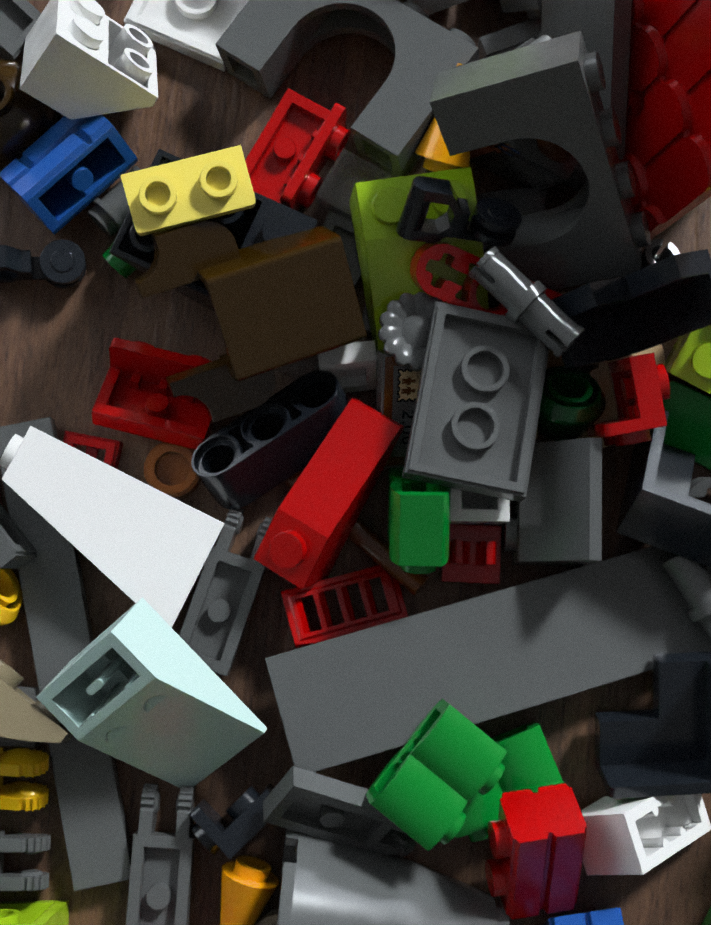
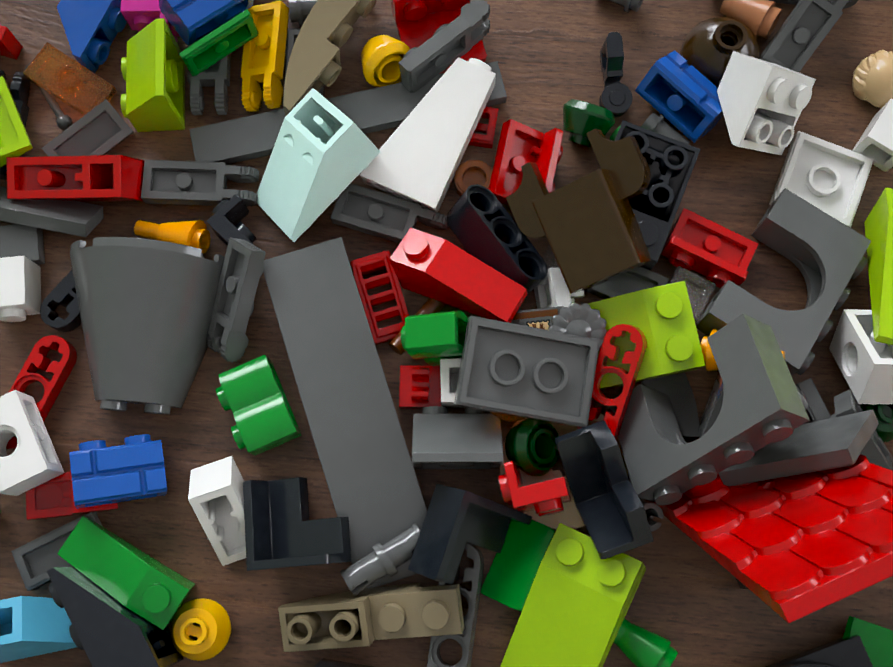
camera: 90 degrees right, 5 degrees down
(97, 306) = (583, 117): none -> dark green cone
(188, 190) = (666, 160): light yellow bracket -> none
(437, 776) = (259, 352): green brick -> none
(492, 221) = (664, 379): black piece -> none
(526, 302) = (601, 402): dark grey pin -> none
(536, 851) = (207, 426): red brick -> none

